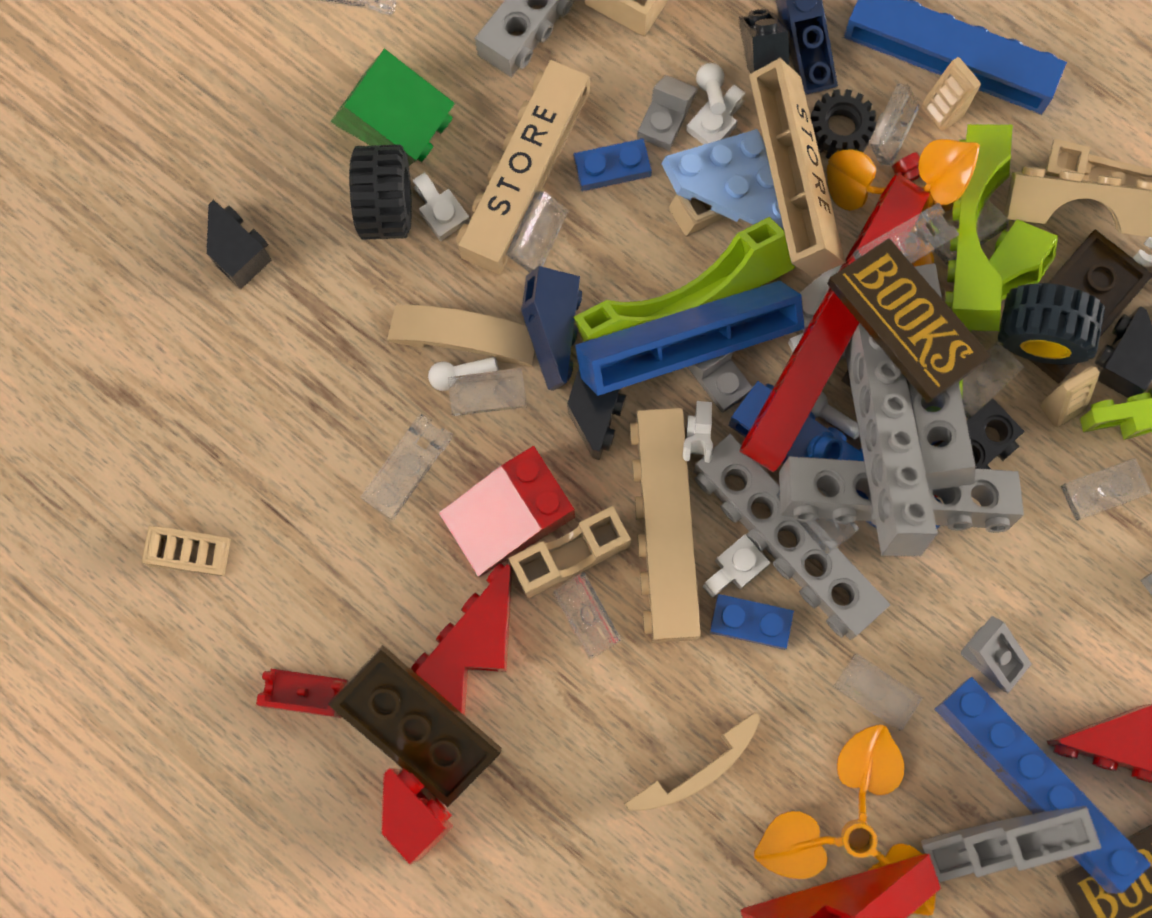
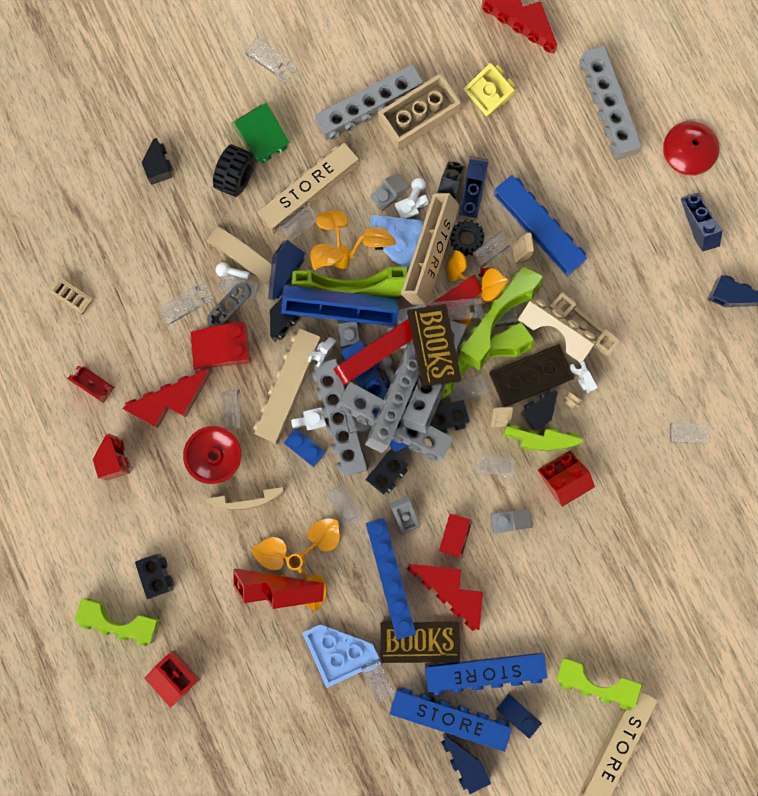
camera: 25 degrees right, 5 degrees up
(415, 726) = (131, 421): dark brown tile -> none
(441, 210) = (260, 191): white plate -> none
(506, 407) = (242, 299): none -> dark grey beam
(565, 557) = (249, 378): tan arch -> none
(603, 686) = (200, 448): none -> red dish
(612, 164) = (351, 205): blue plate -> none
(641, 253) = (325, 255): none -> light orange plant
(914, 590) = (382, 469): none -> black brick
(1012, 842) = (361, 596): light grey slope -> none
(1051, 323) = (505, 378): black wheel -> none
(1108, 647) = (455, 535): none -> red hinge

